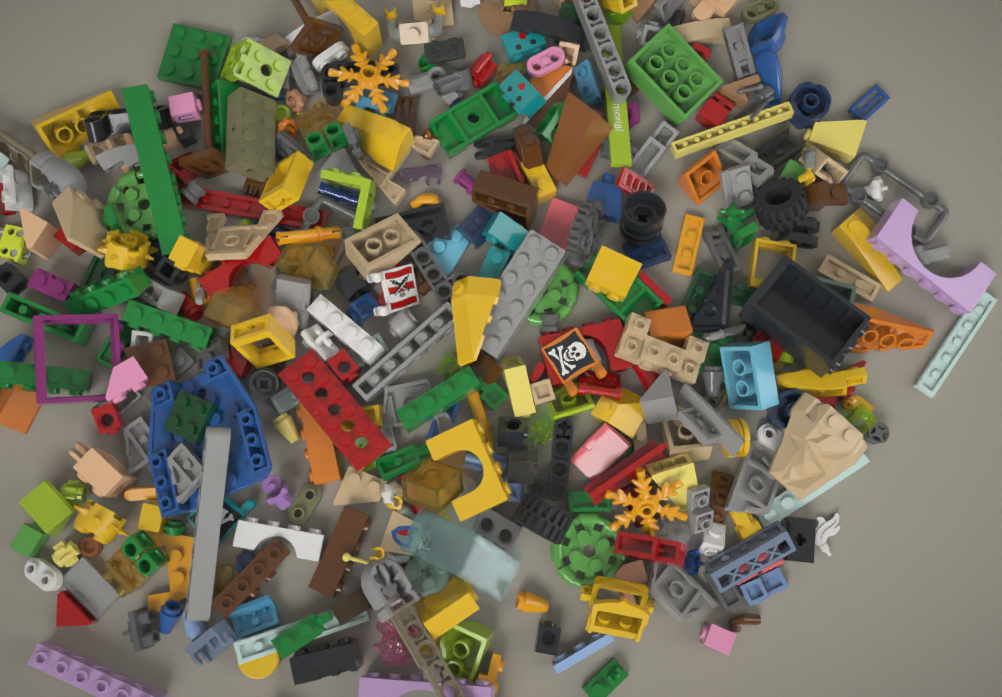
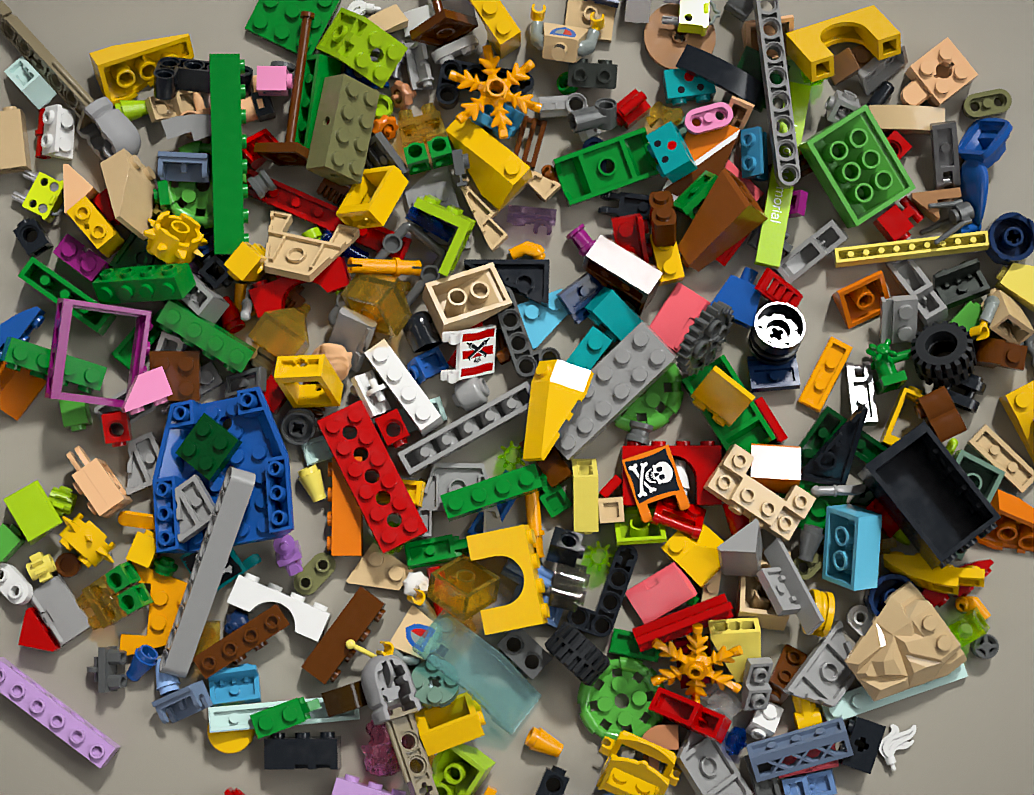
camera: 15 degrees right, 5 degrees up
(58, 256) = (96, 227): none -> yellow window
(72, 416) = (75, 415): none -> bright green brick
(123, 190) = (184, 166): none -> sand blue hinge
(792, 245) = (940, 414): none -> reddish brown brick

